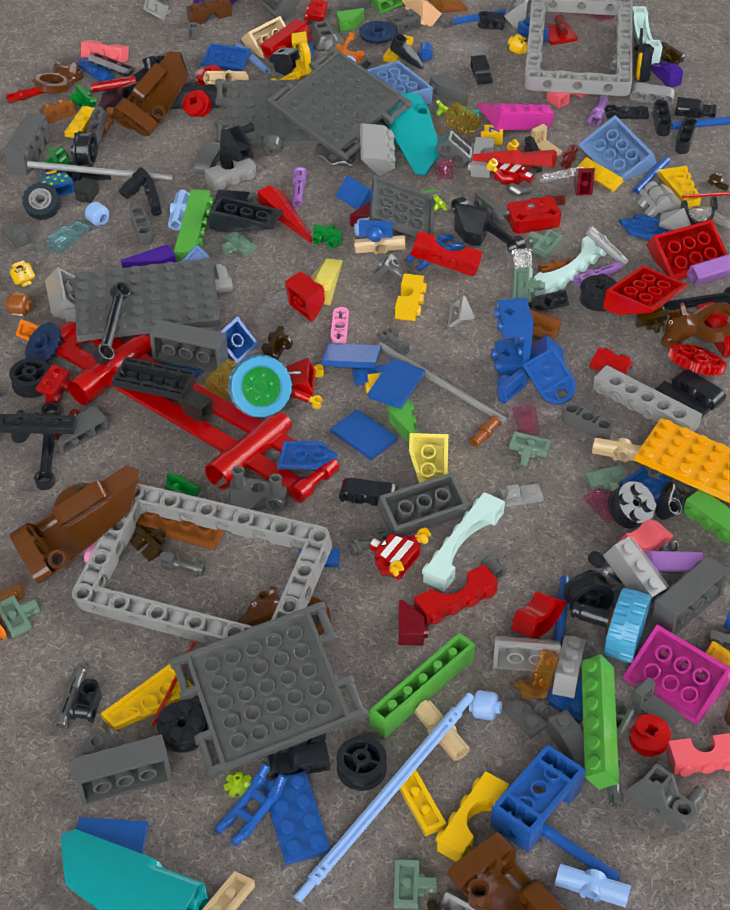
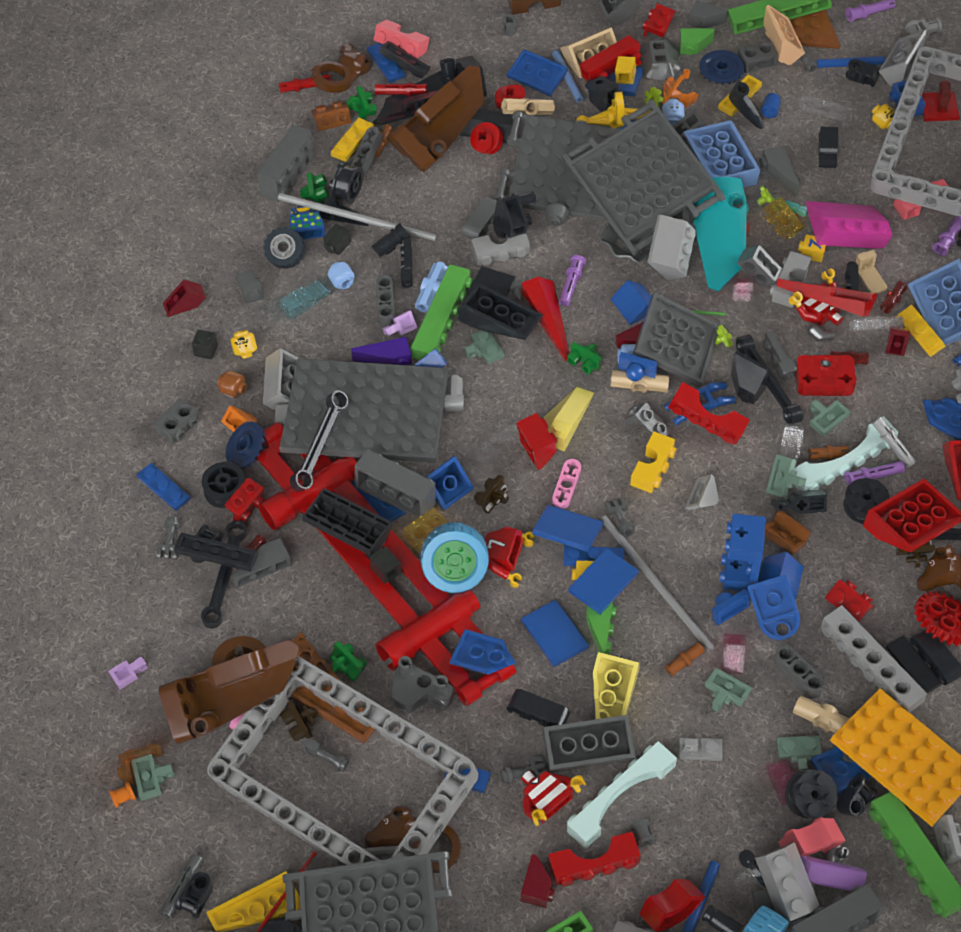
camera: 15 degrees right, 10 degrees up
(160, 238) = (402, 323): none -> lavender plate
(589, 589) = (730, 893): black wheel -> none

